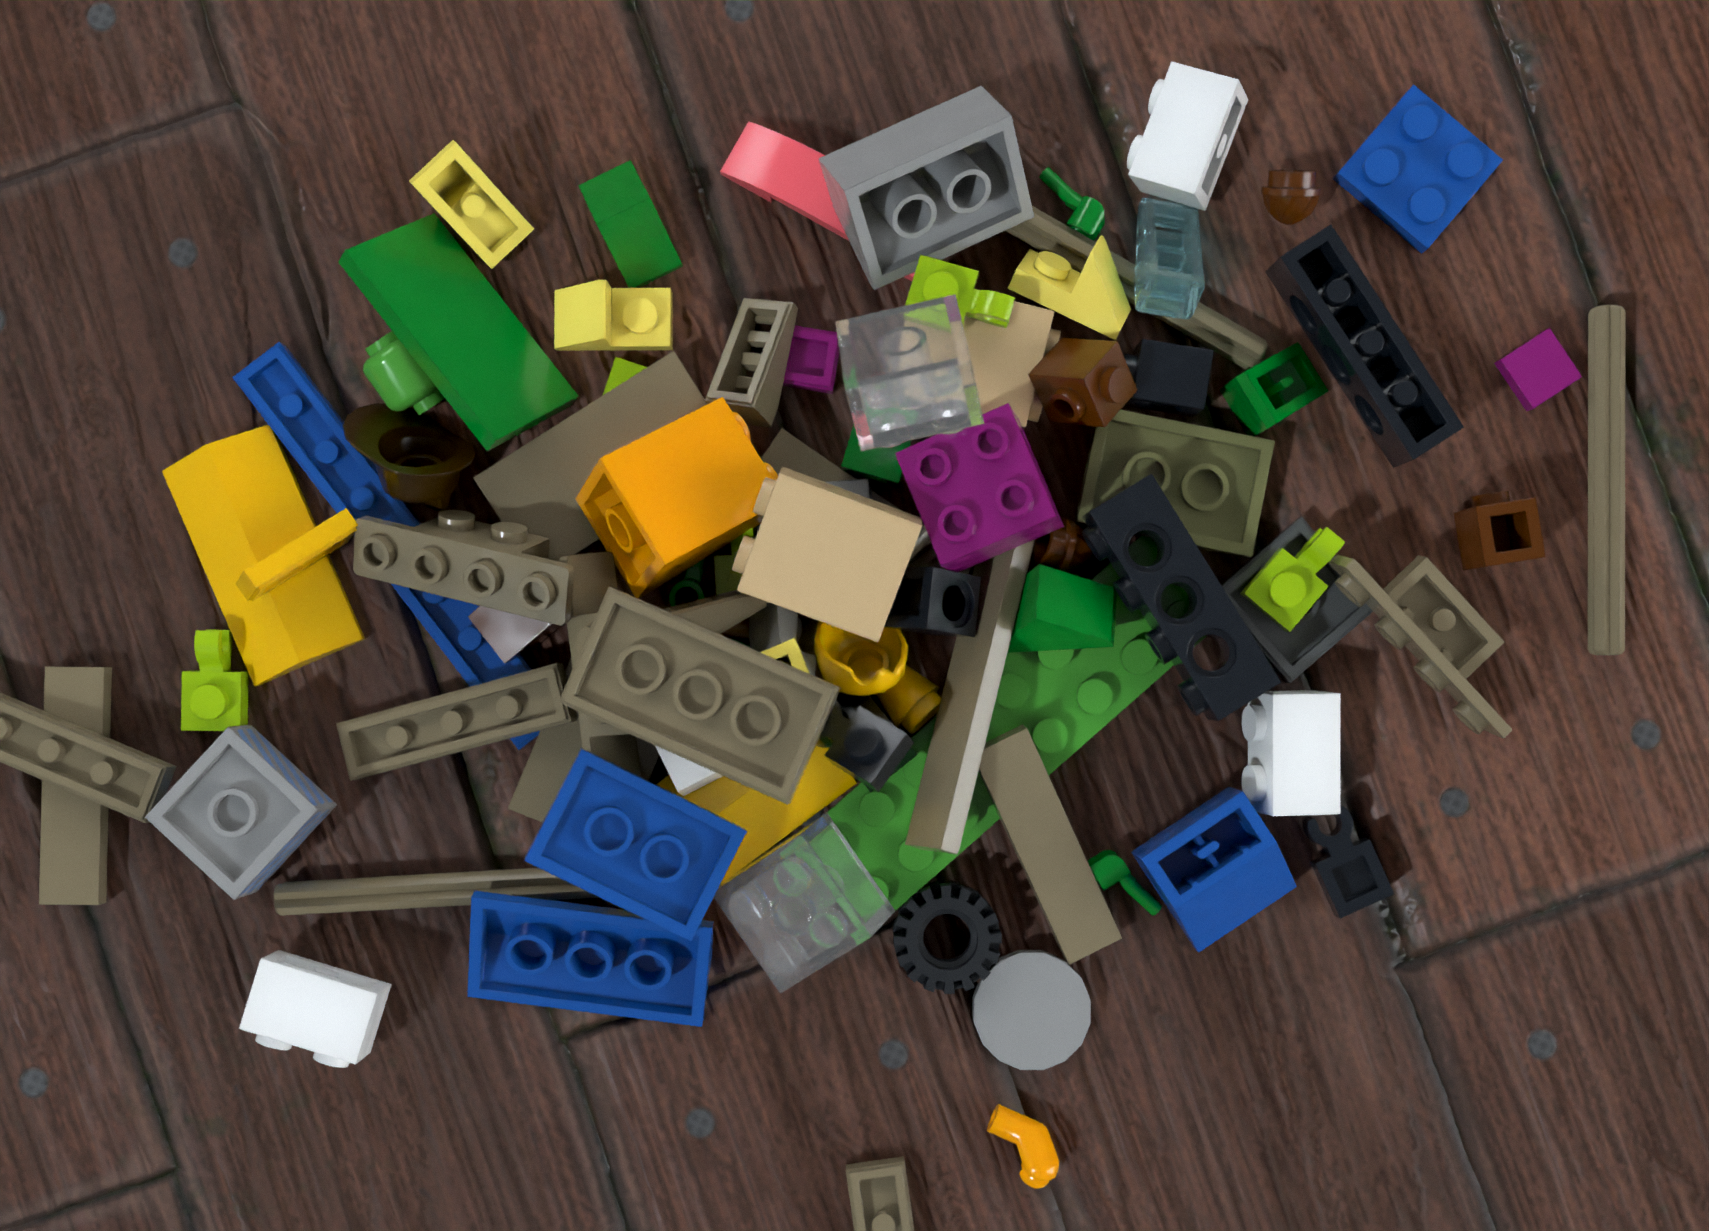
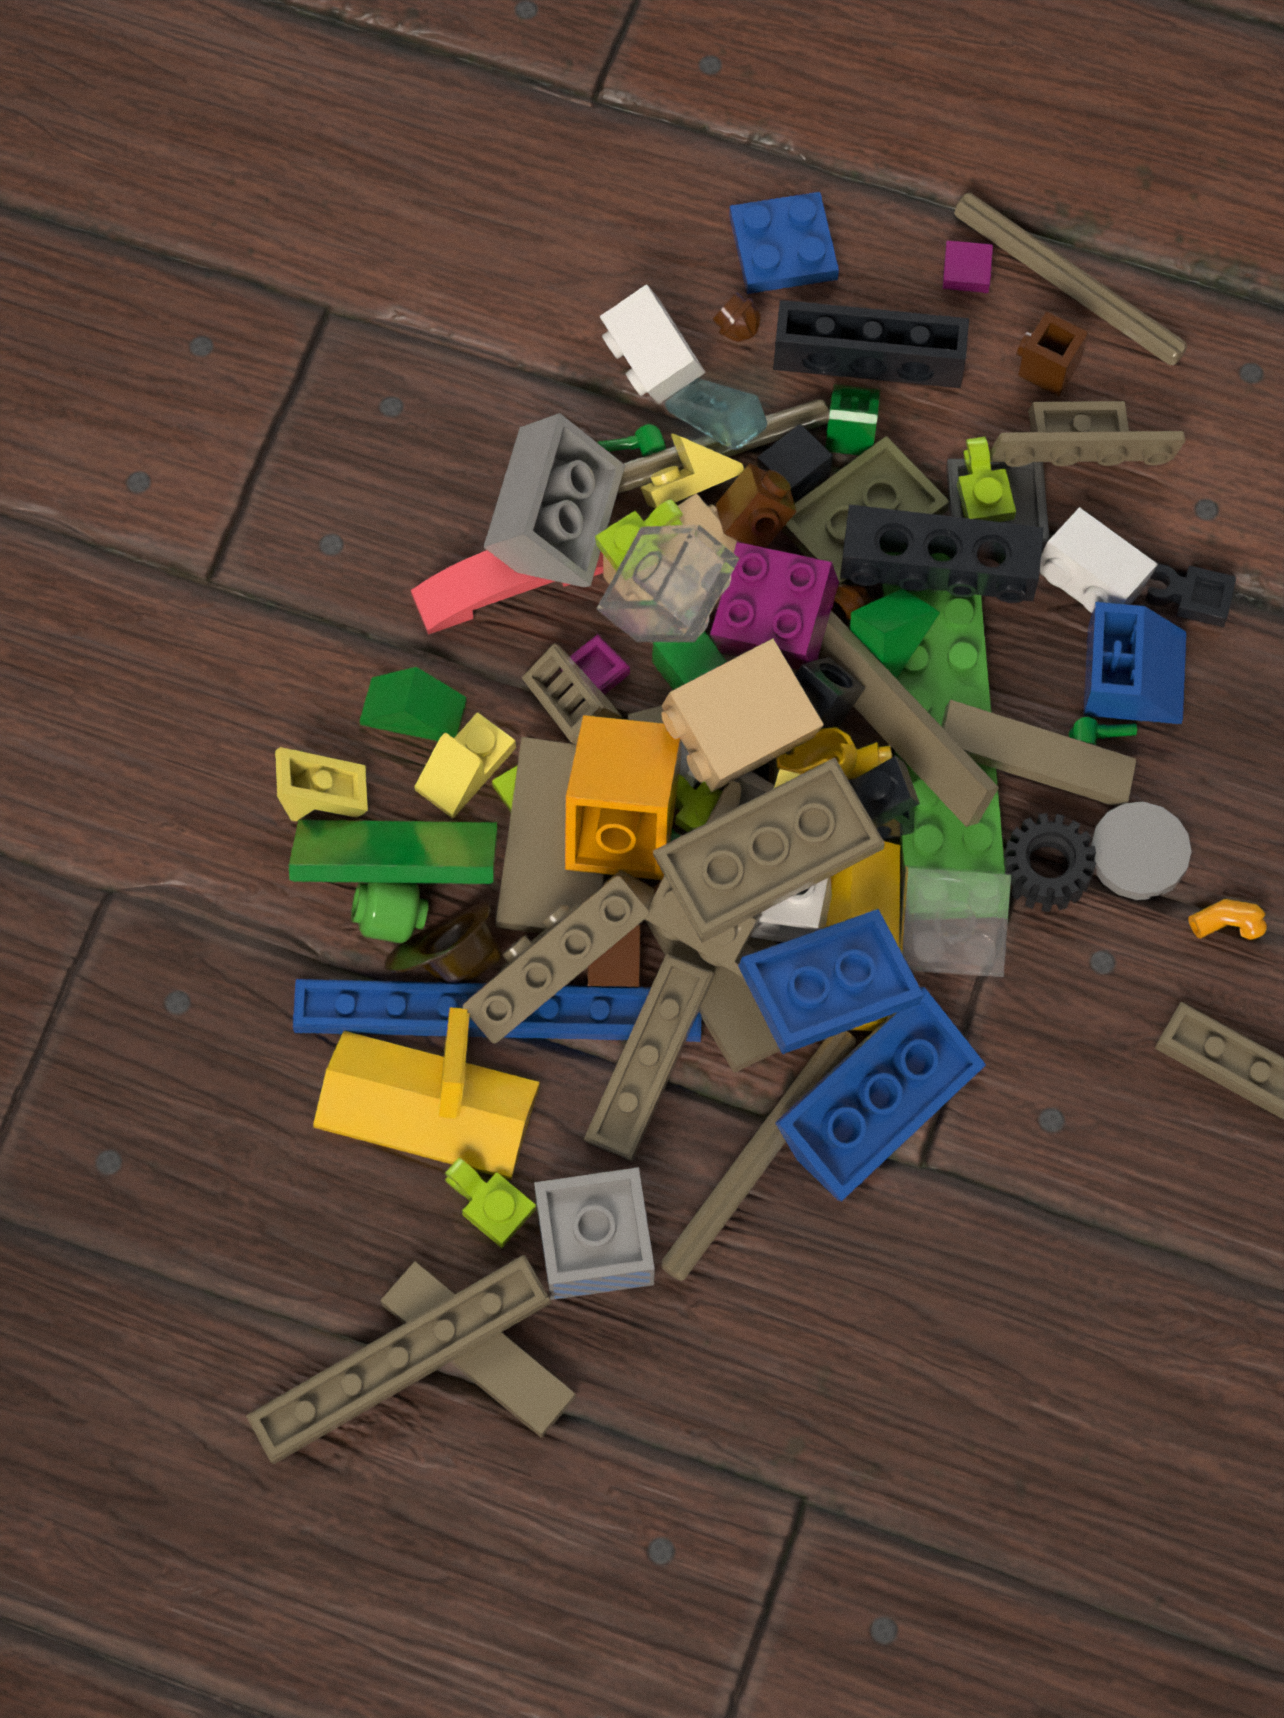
camera: 50 degrees left, 20 degrees down
(314, 1008) = (769, 1293): white brick -> none

